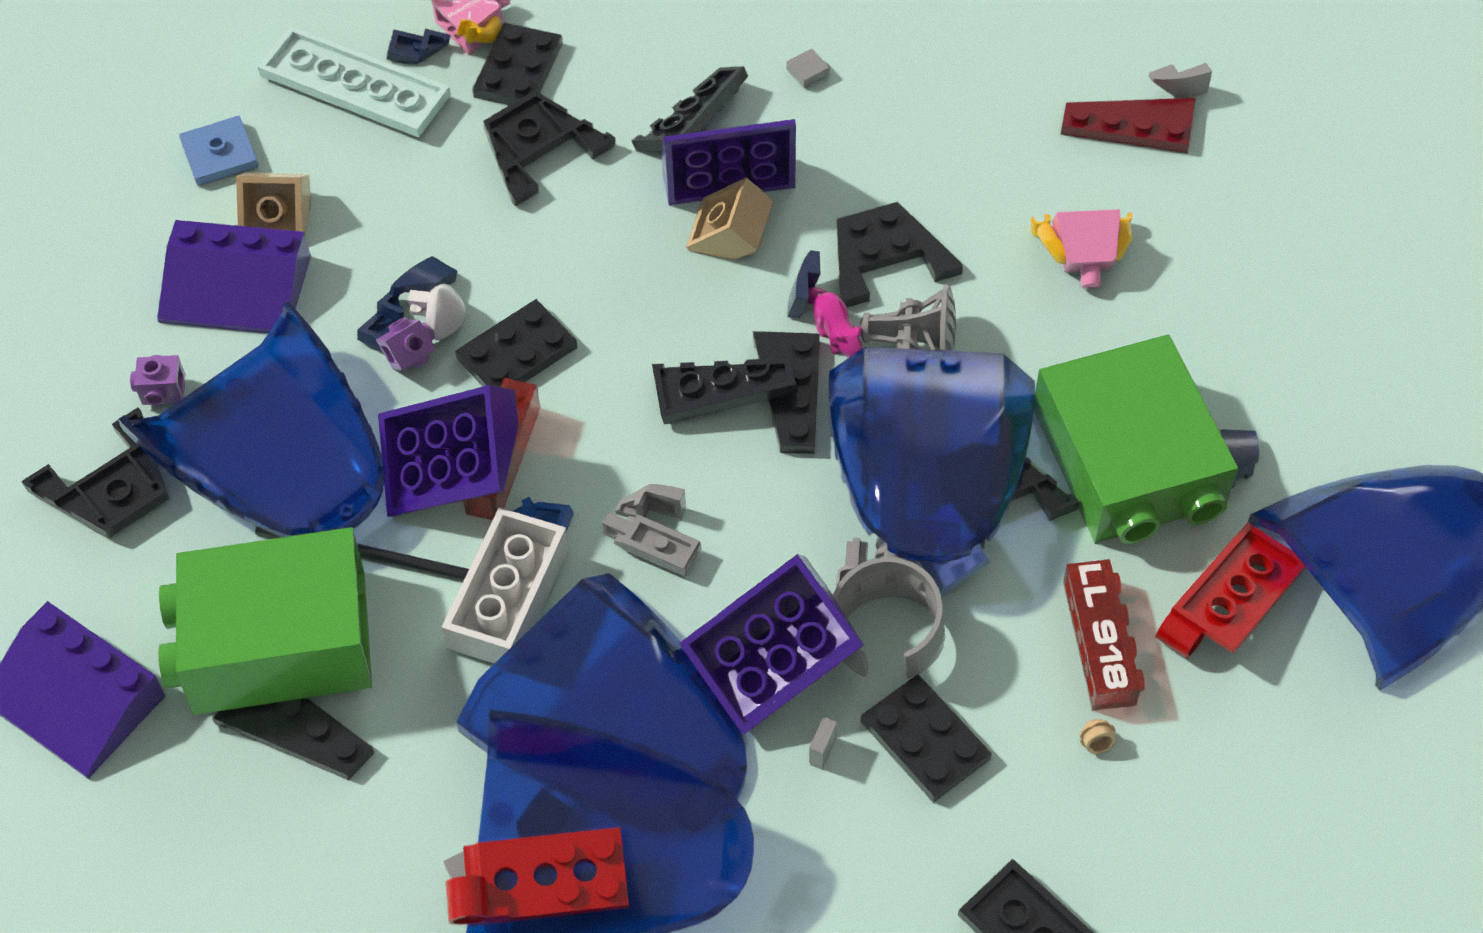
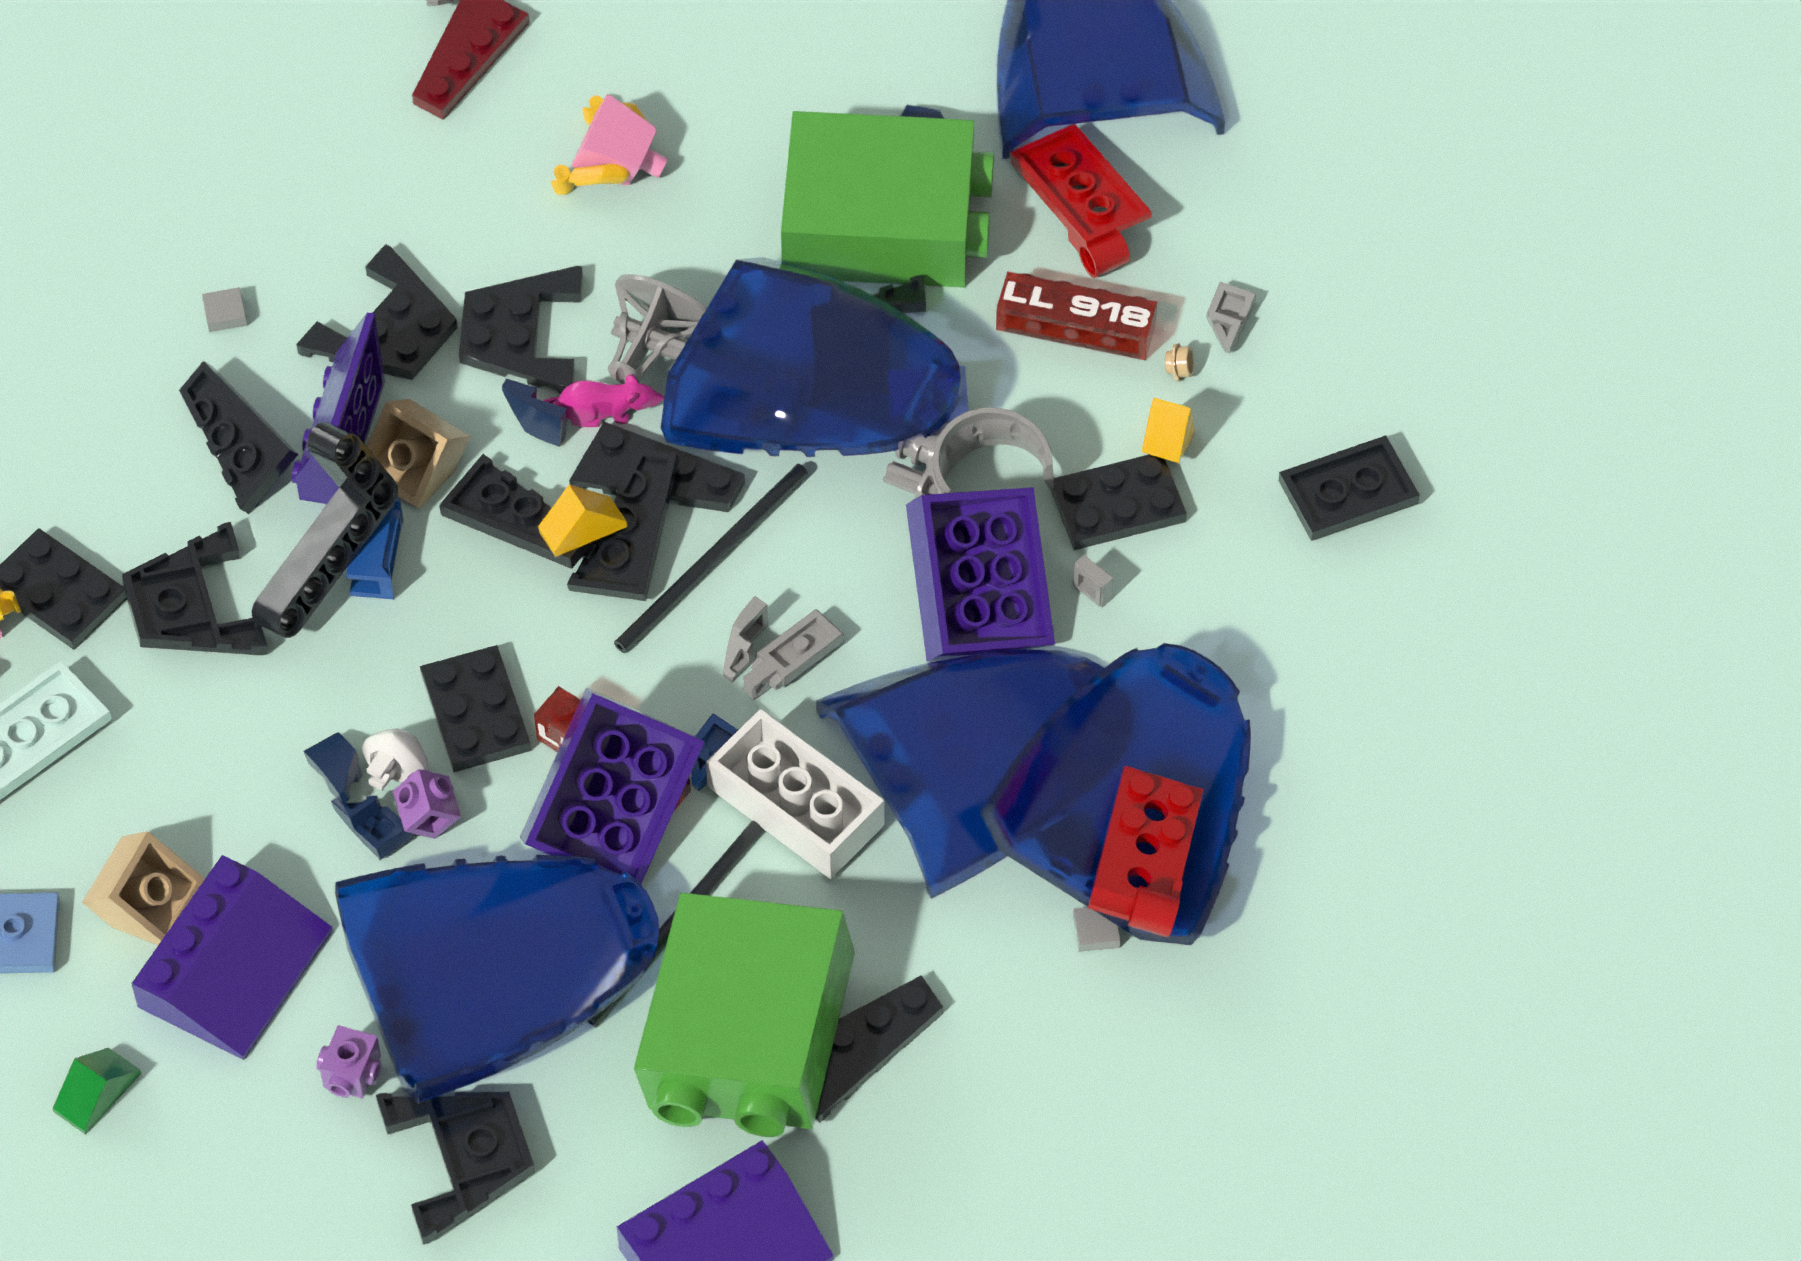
camera: 70 degrees left, 0 degrees up
(106, 241) = (93, 1087): none -> green slope
(606, 193) = (334, 537): none -> black beam
(631, 229) = (375, 562): none -> blue window
(699, 305) = (503, 509): none -> black wing
(699, 342) = (579, 519): none -> yellow slope
(727, 455) = (710, 558): none -> black piece
(846, 178) = (408, 321): none -> black wing
(1007, 748) = (1168, 430): none -> yellow slope
(1173, 761) = (1229, 313): none -> light grey slope

